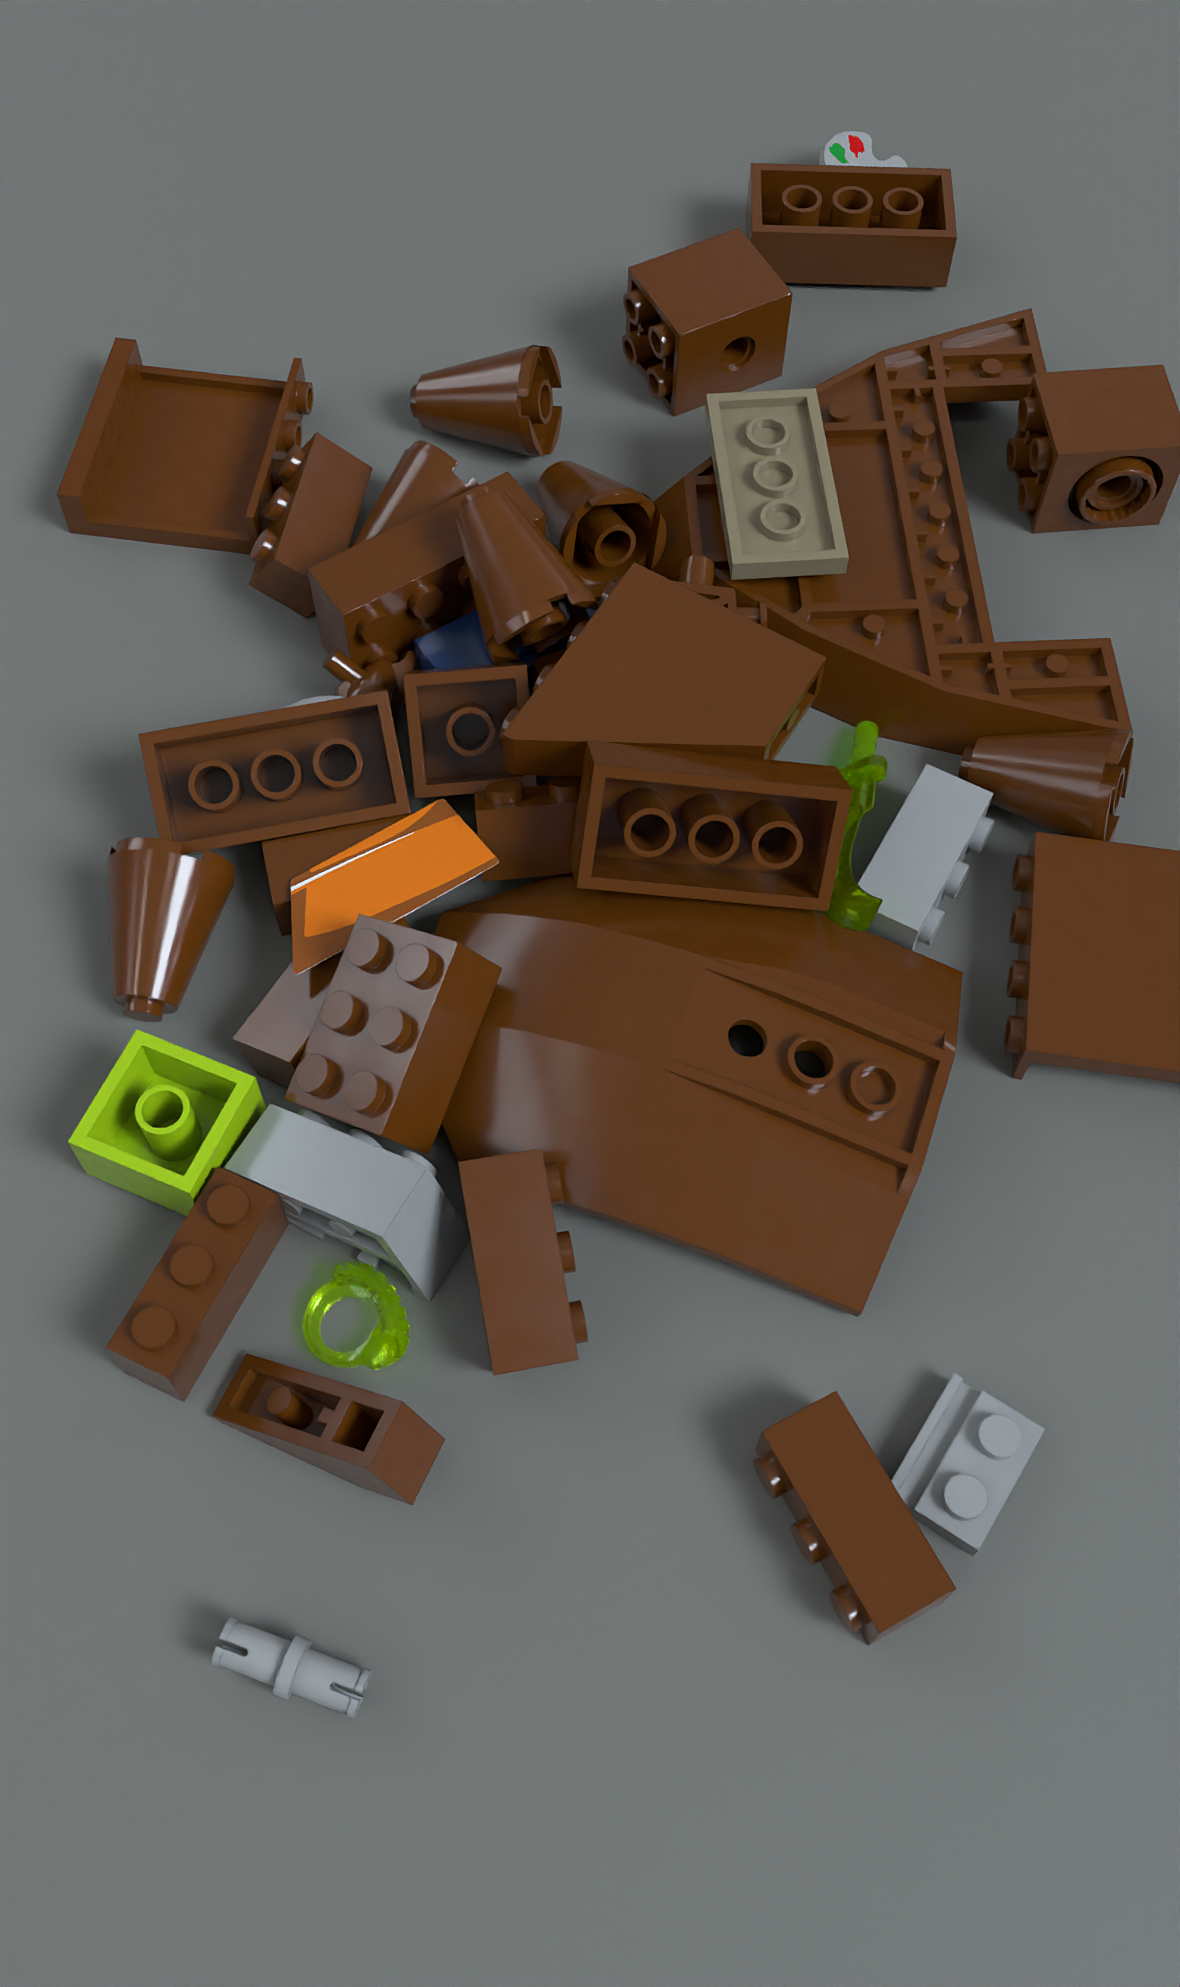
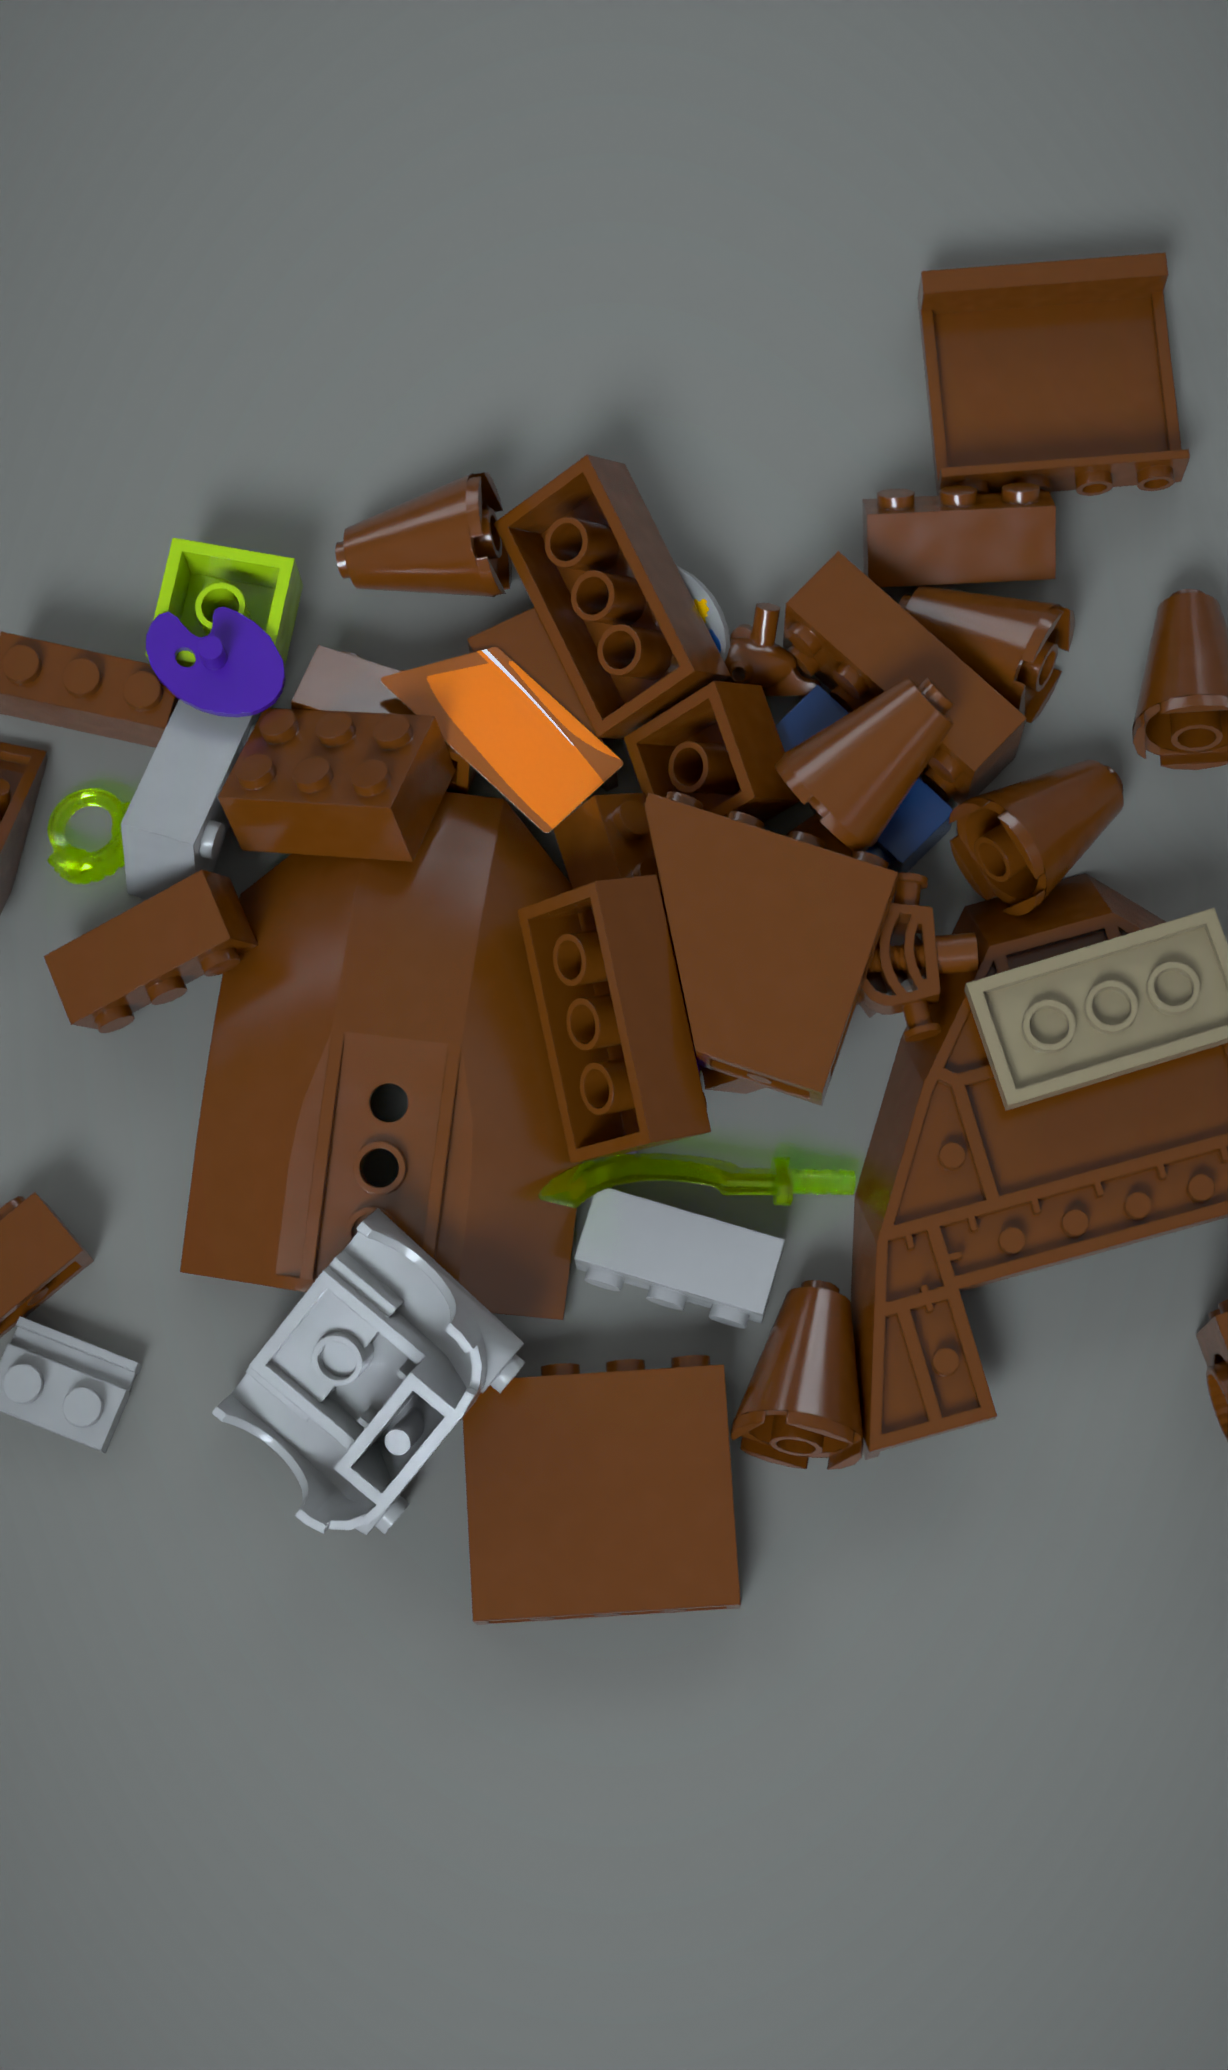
camera: 85 degrees right, 15 degrees up
(231, 1103) = (234, 666): none -> dark purple piece
(1030, 1117) = (370, 1377): none -> light grey piece

